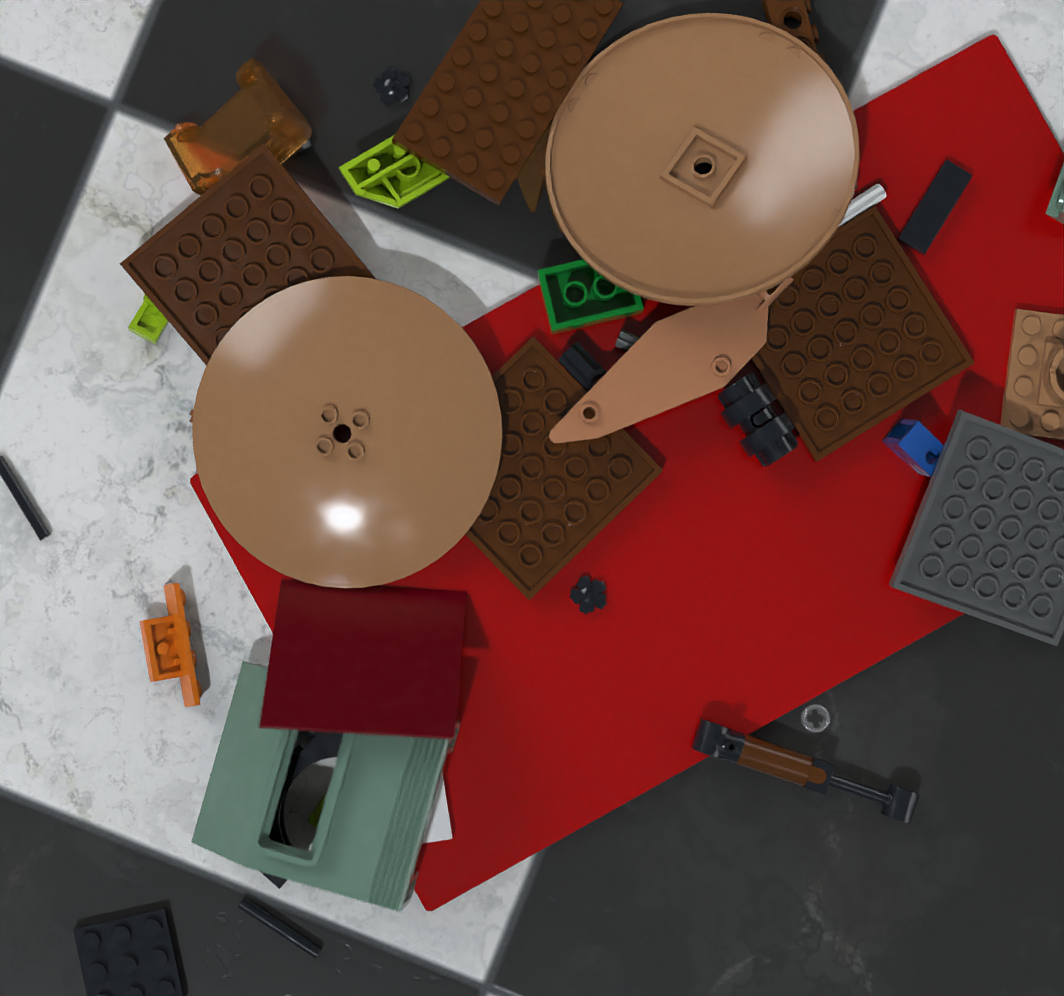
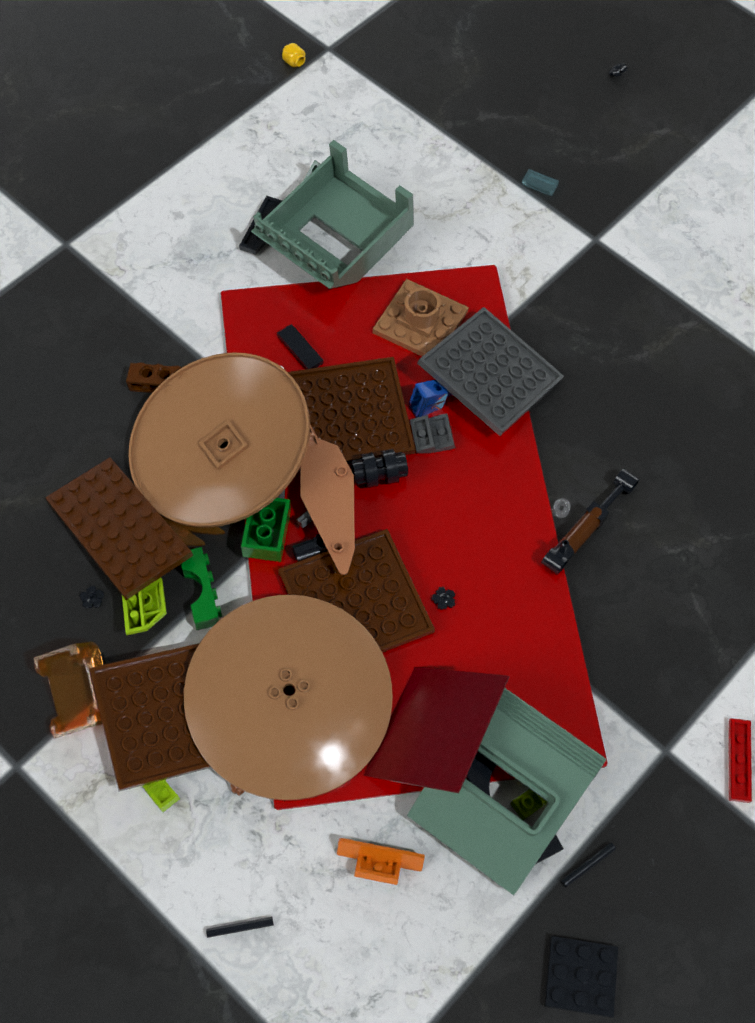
camera: 65 degrees left, 25 degrees down
(433, 258) = (204, 610): none -> green arch
(861, 476) = (432, 434): none -> dark grey slope

